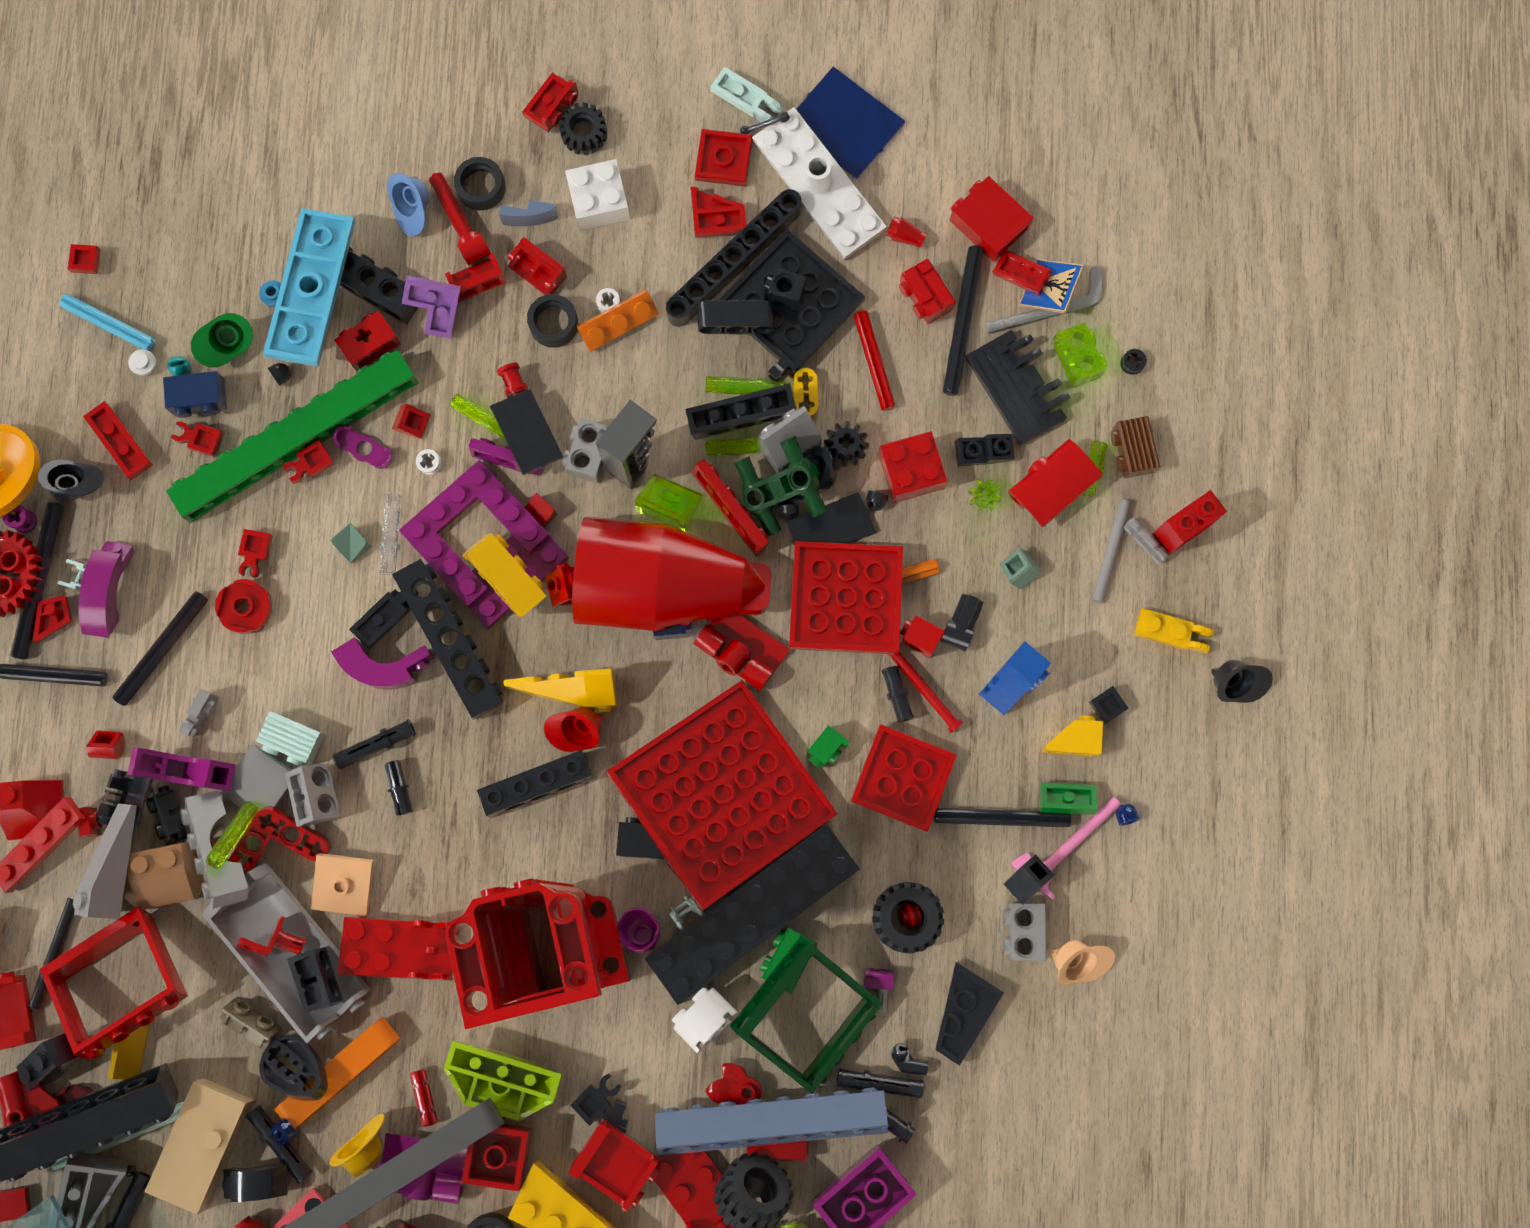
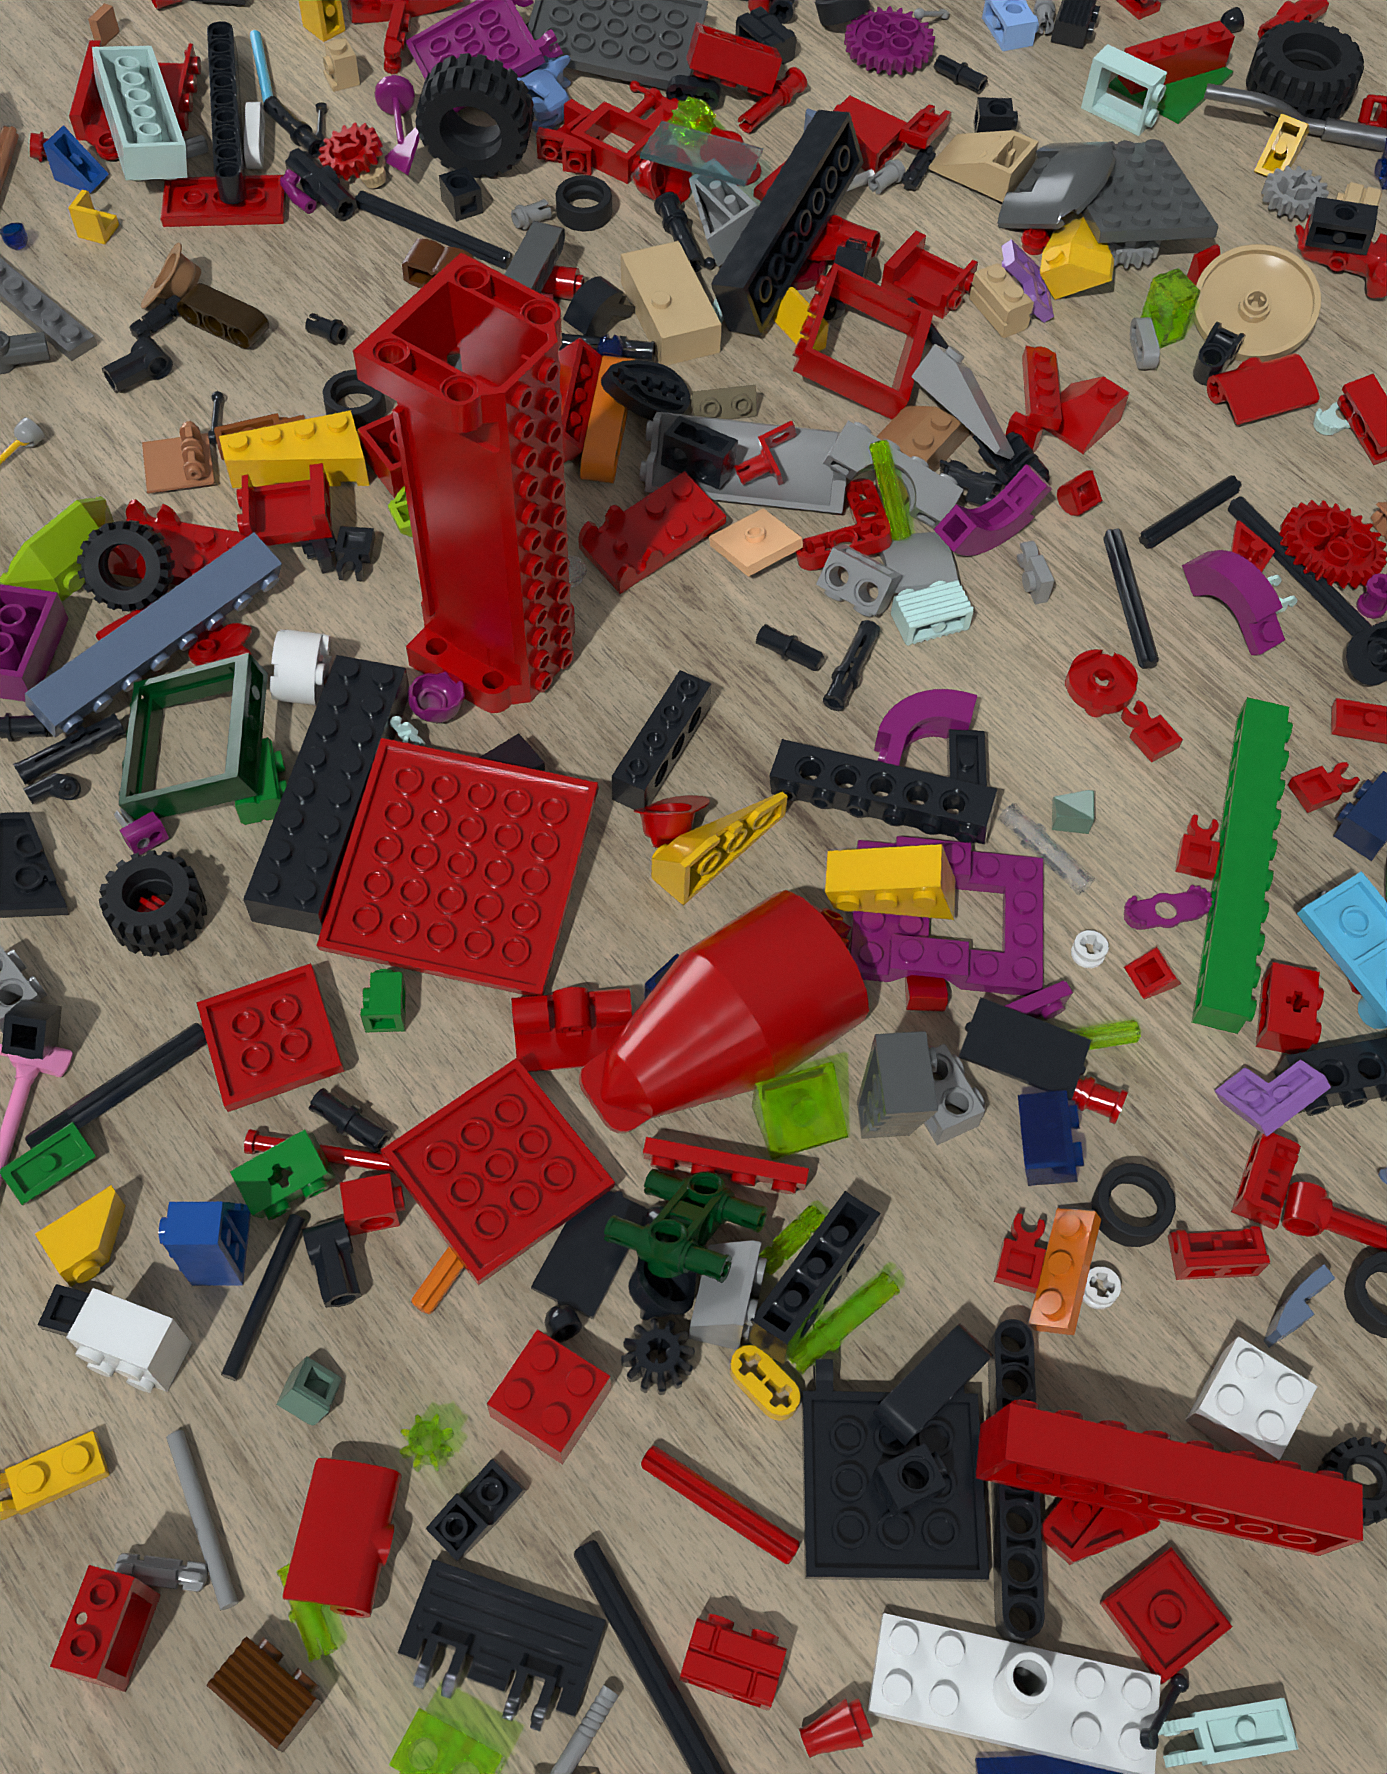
camera: 135 degrees right, 20 degrees down
(353, 1107) = (578, 384): none -> red brick
(560, 381) = (1048, 1138): none -> clear blue brick
(632, 342) = (1019, 1259): none -> red plate
(677, 190) = (1169, 1479): none -> red brick
(963, 692) = (259, 1176): none -> green brick
(1007, 636) = (263, 1298): none -> black bar
(1092, 655) = (129, 1341): none -> white brick

